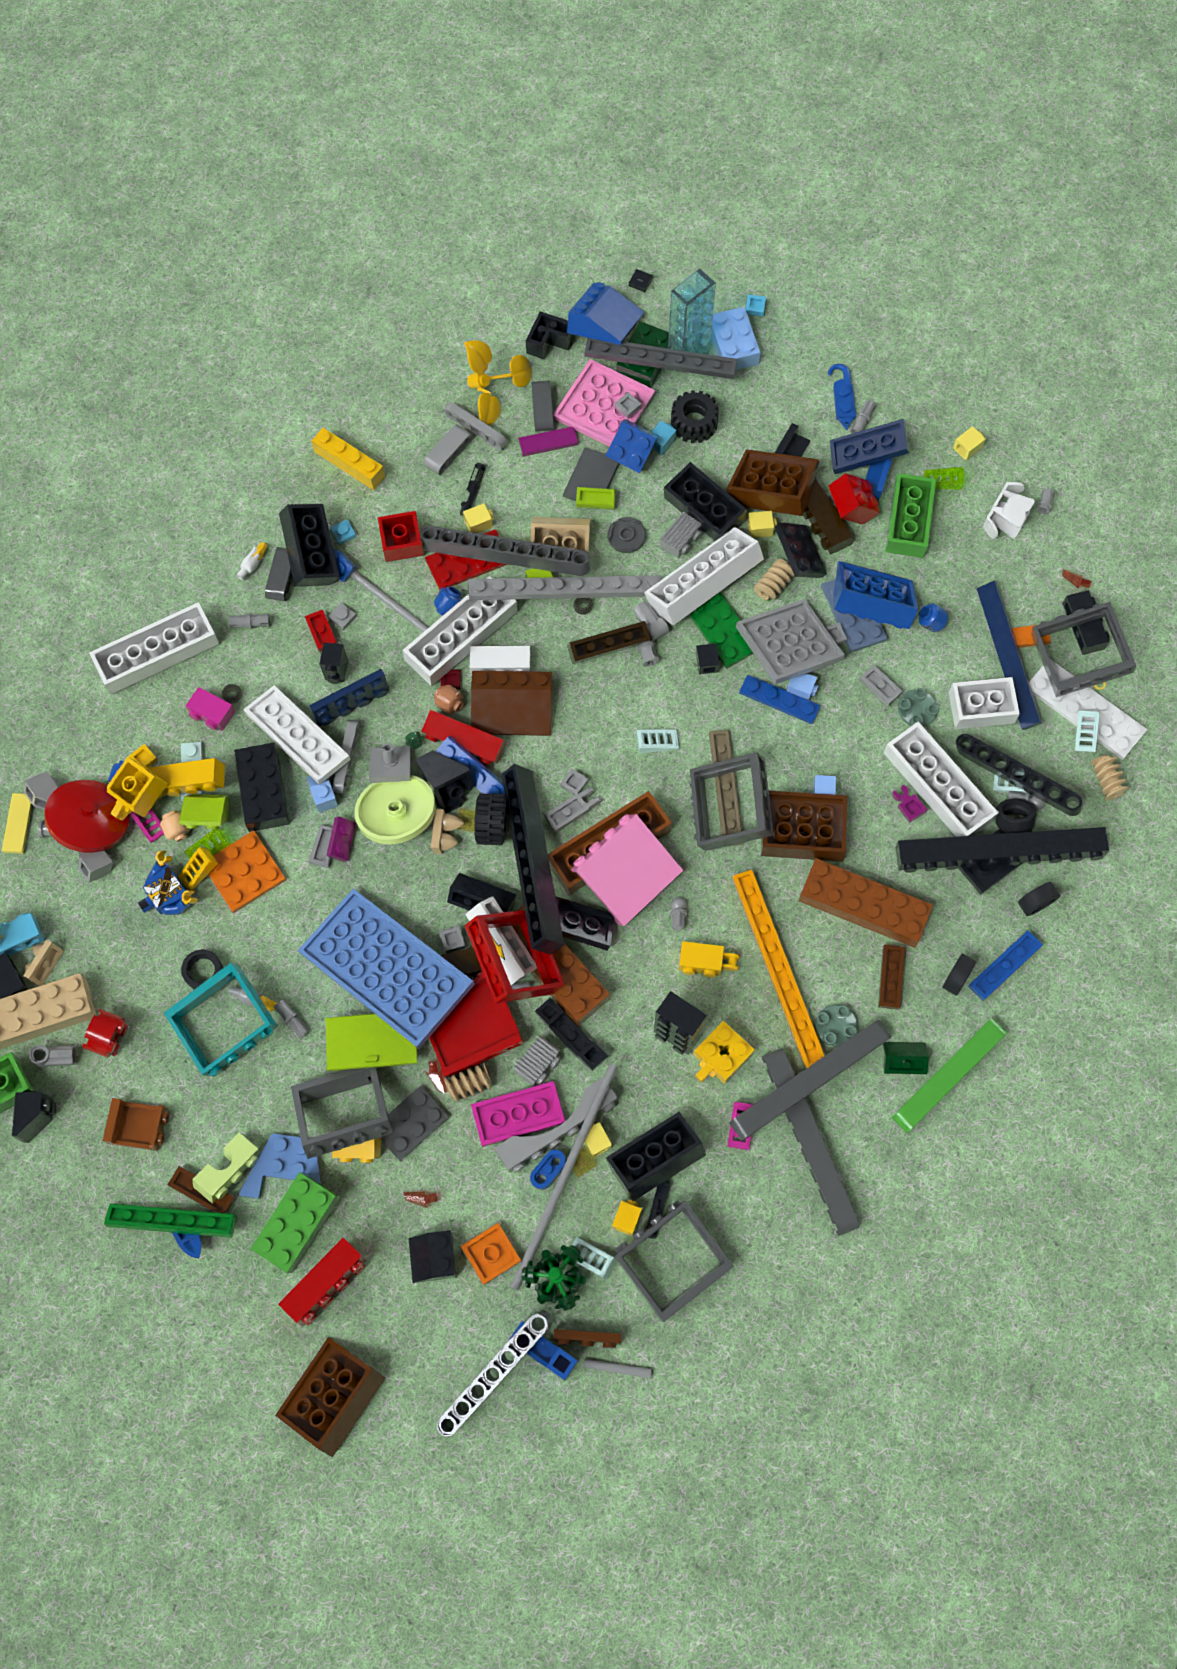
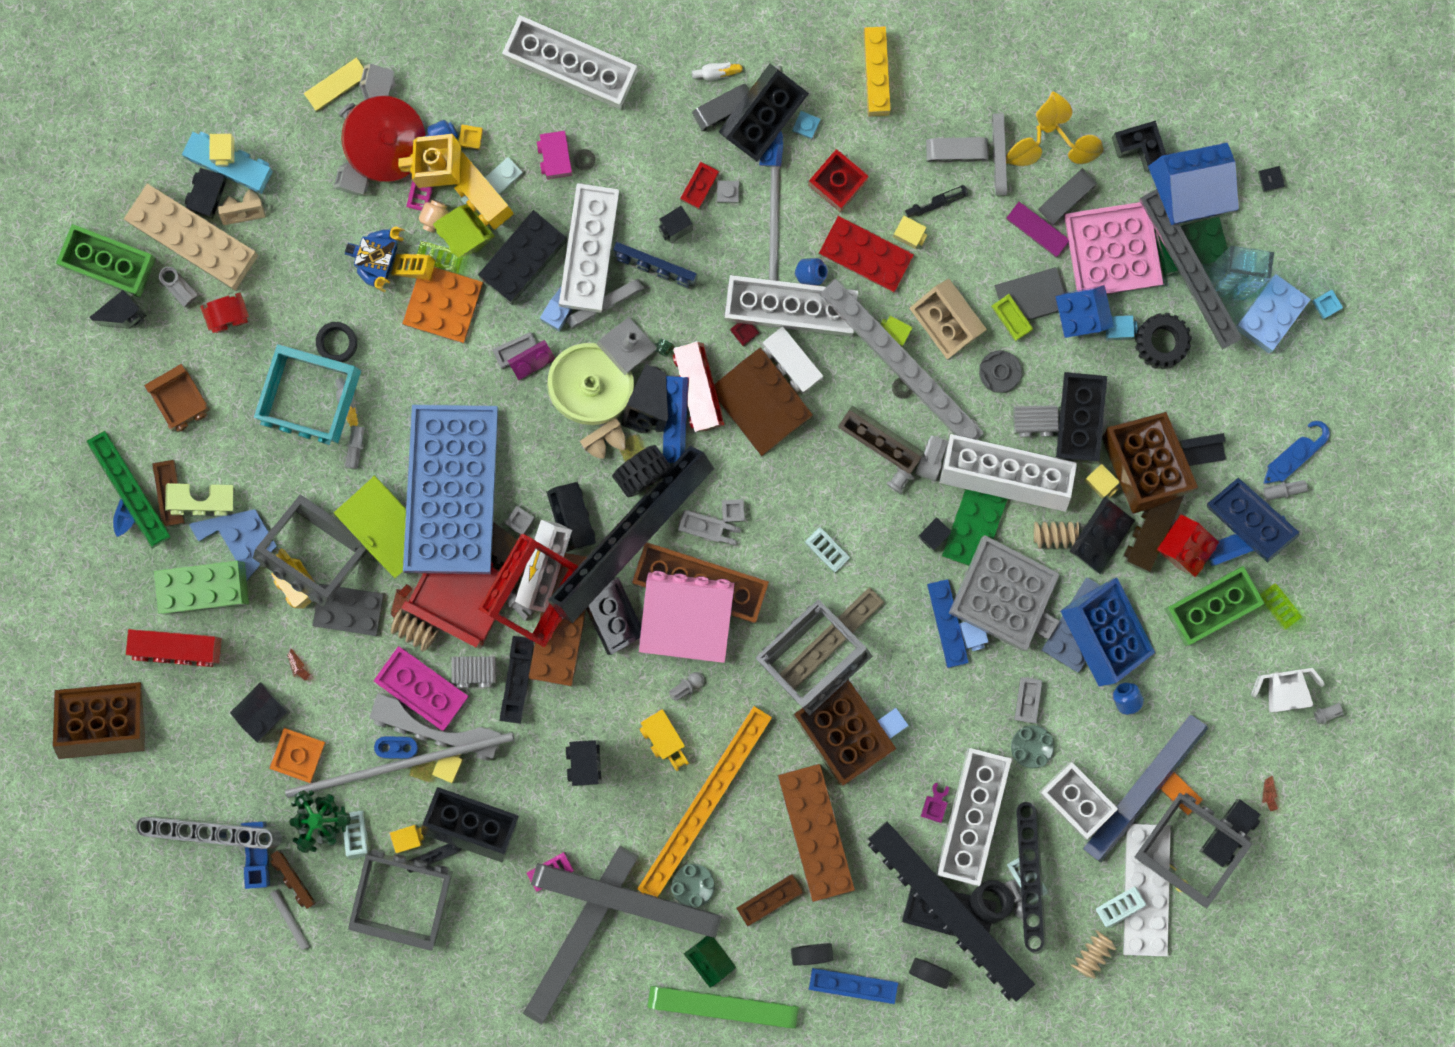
camera: 50 degrees right, 15 degrees up
(248, 621) = (659, 117): light grey pin -> none
(449, 699) = (723, 346): nougat head -> none
(505, 550) = (892, 294): dark grey beam -> none
(628, 405) = (1124, 274): light grey plate -> none
(726, 1065) = (582, 808): yellow hinge -> none
(969, 443) = (1334, 604): light yellow brick -> none

